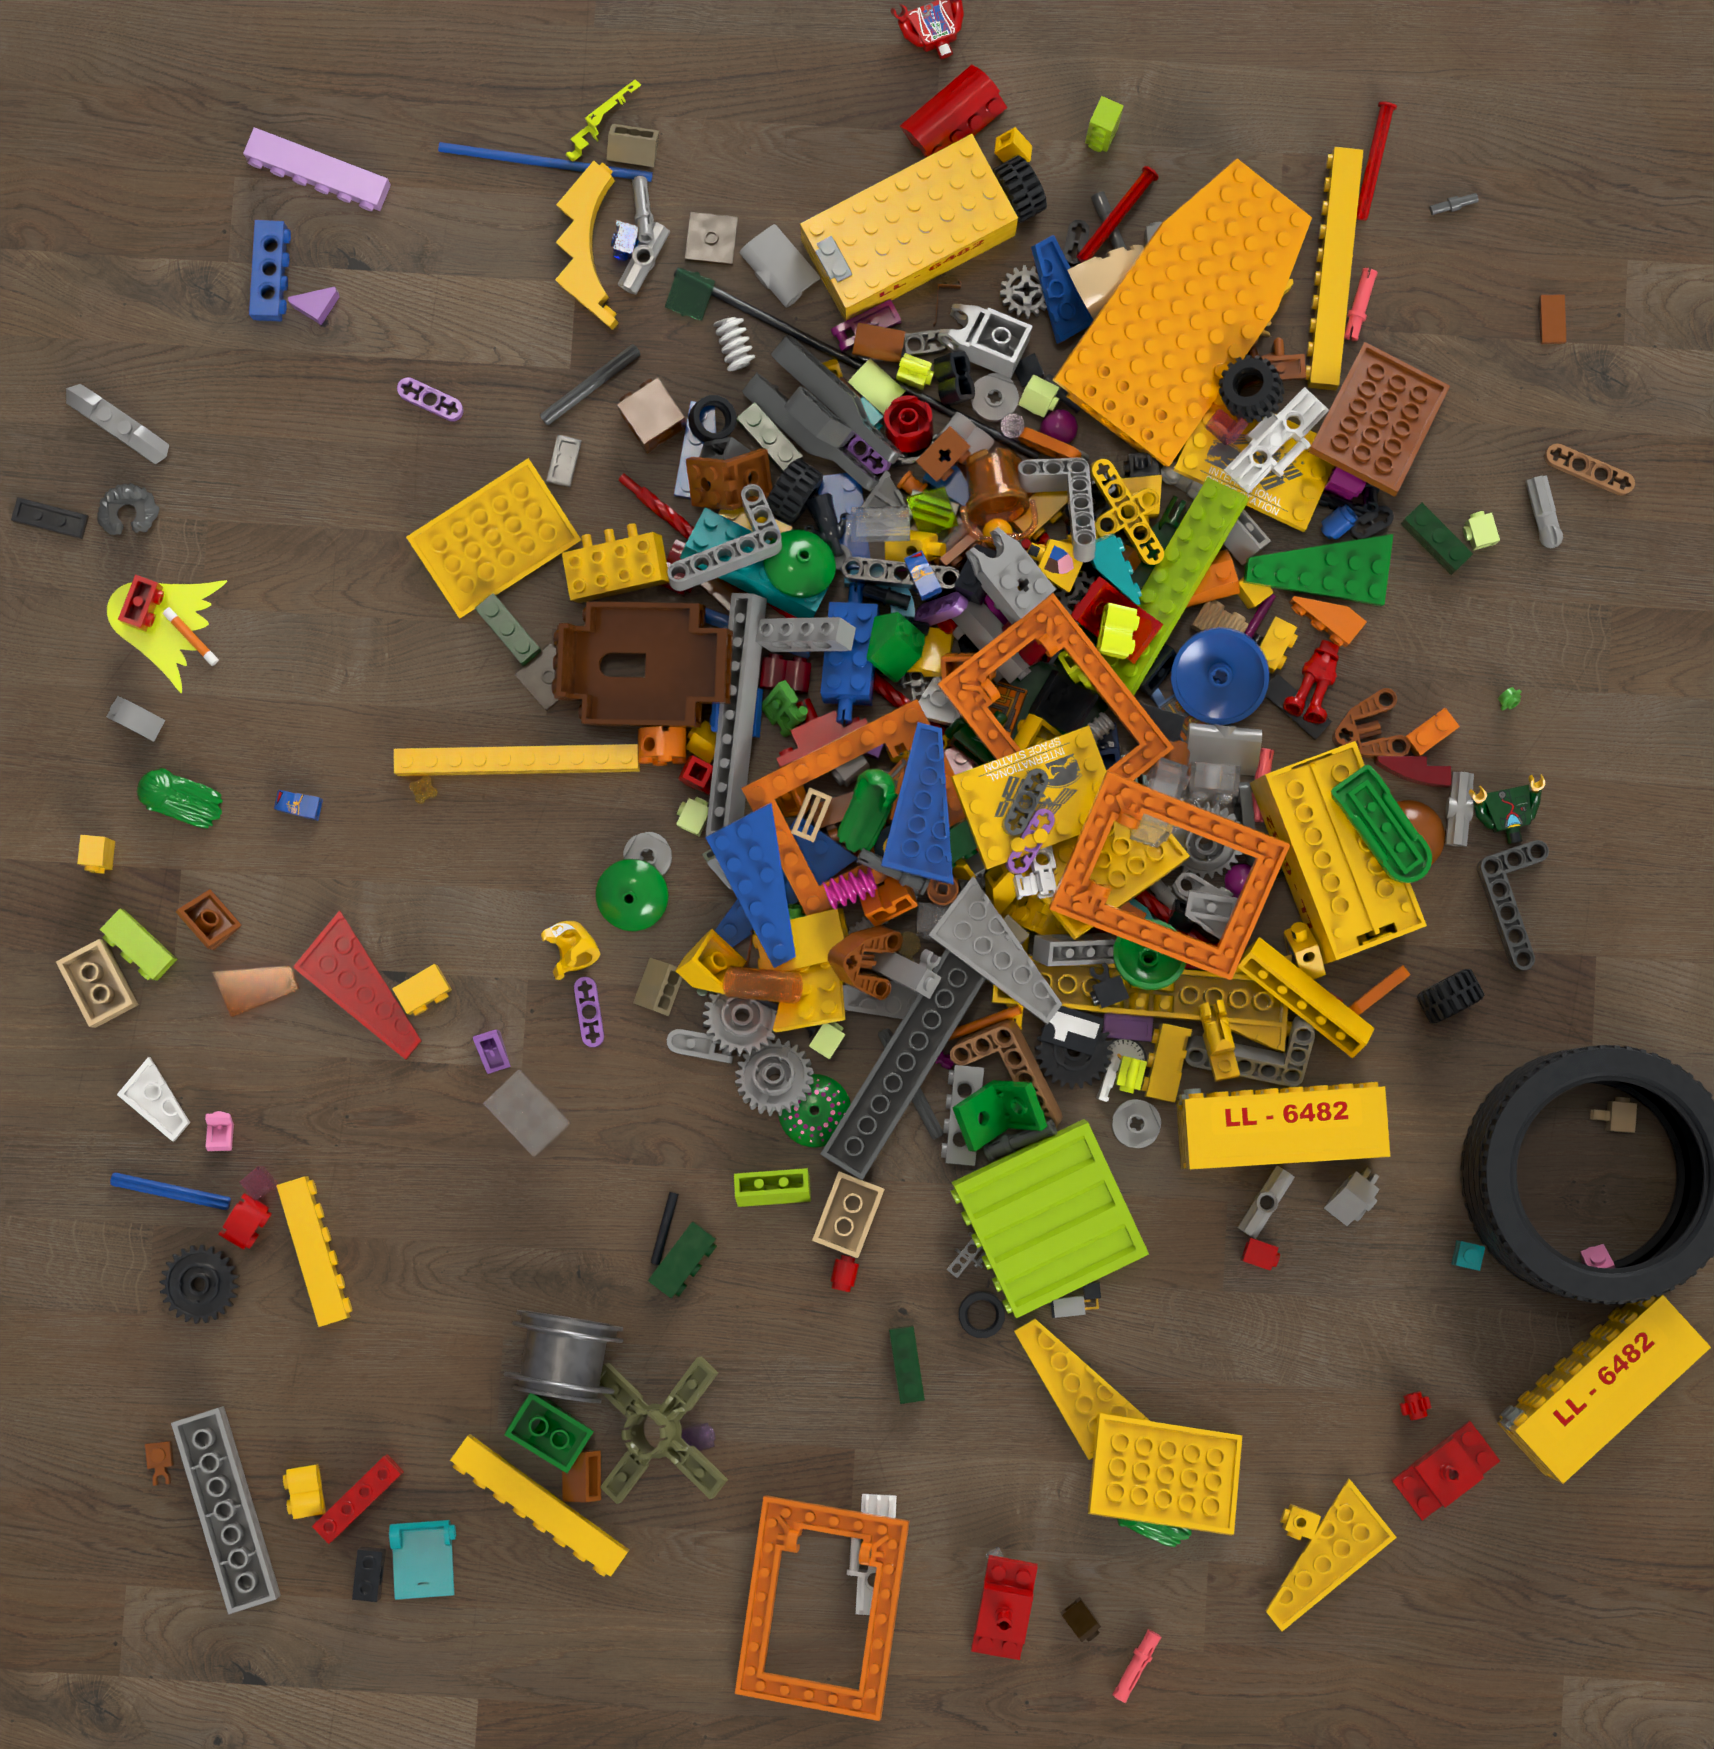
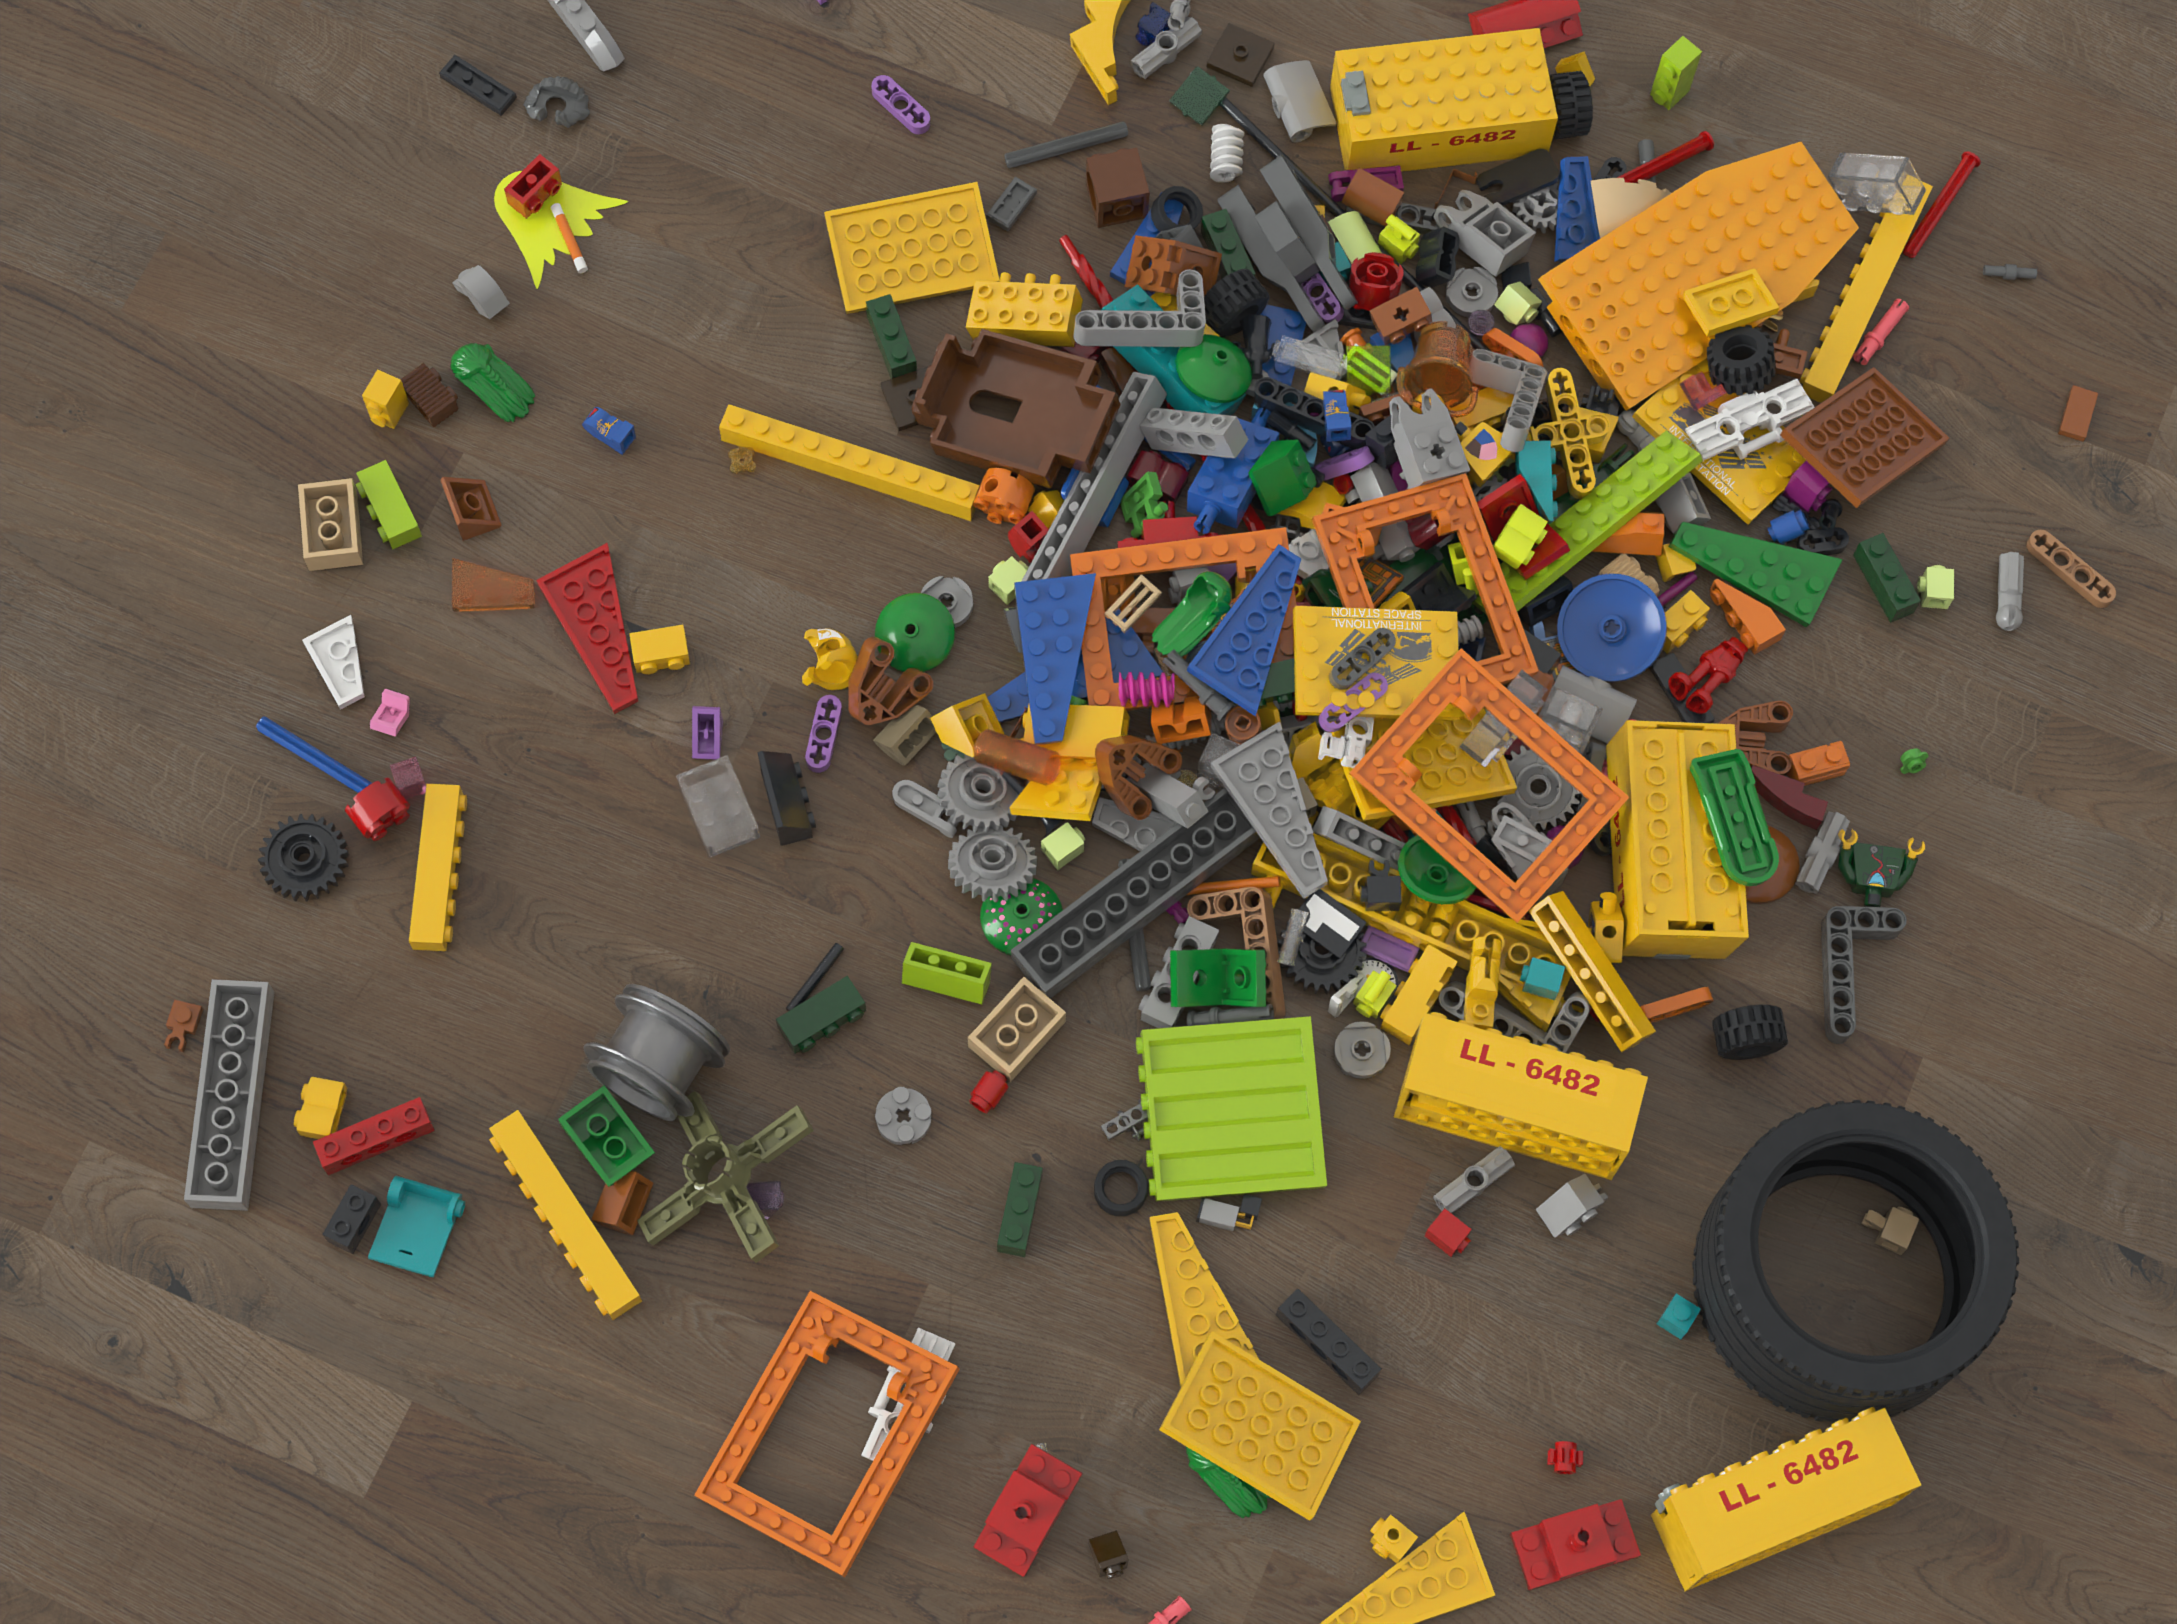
camera: 15 degrees right, 15 degrees down
(129, 830) = (429, 394): none -> reddish brown brick
(581, 1083) = (786, 797): none -> black slope
(622, 967) = (878, 692): none -> dark orange connector
(769, 1325) = (901, 1100): none -> light grey plate
(1002, 272) = (1520, 177): none -> black piece
(1047, 1053) = (1292, 937): none -> clear pin
(1194, 1381) = (1328, 1341): none -> black brick
(1226, 340) = (1730, 302): none -> yellow plate
(1266, 1017) = (1542, 978): none -> teal brick
(1315, 171) = (1877, 183): none -> clear brick

